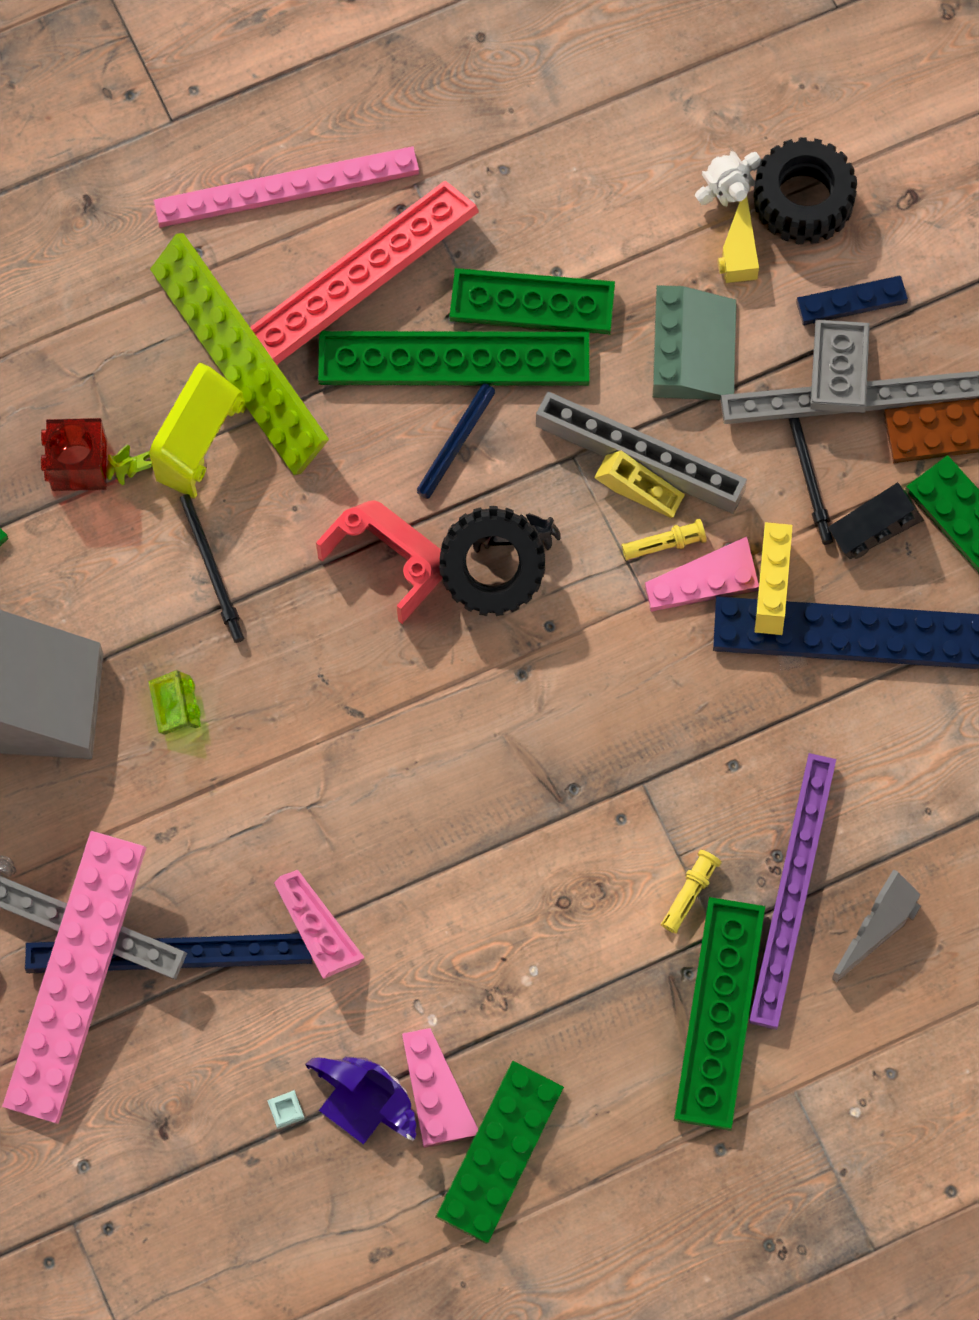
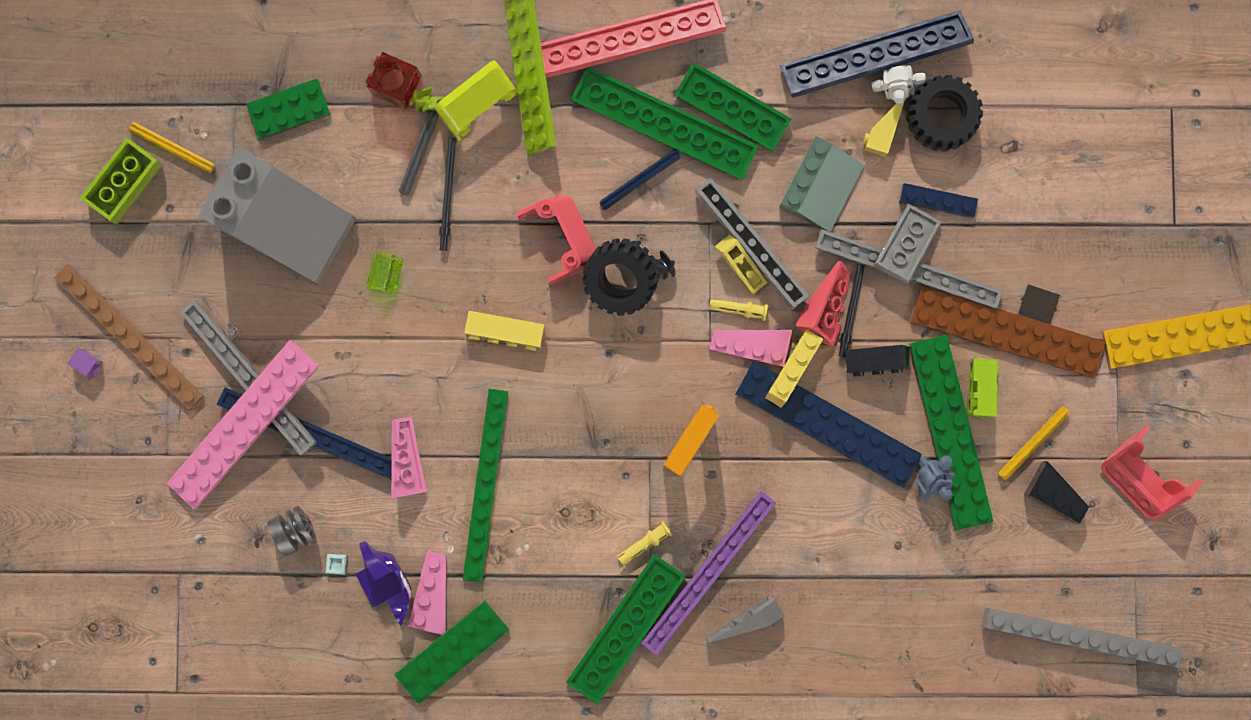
camera: 25 degrees right, 15 degrees up
(148, 532) = (418, 152): none -> dark grey axle
(206, 1085) = (287, 533): none -> flat silver wheel
(370, 702) = (504, 329): none -> light yellow brick
(440, 915) = (485, 485): none -> green plate
(682, 159) = (876, 54): none -> plate
(685, 720) = (691, 439): none -> light orange window
(773, 487) = (824, 307): none -> coral wedge

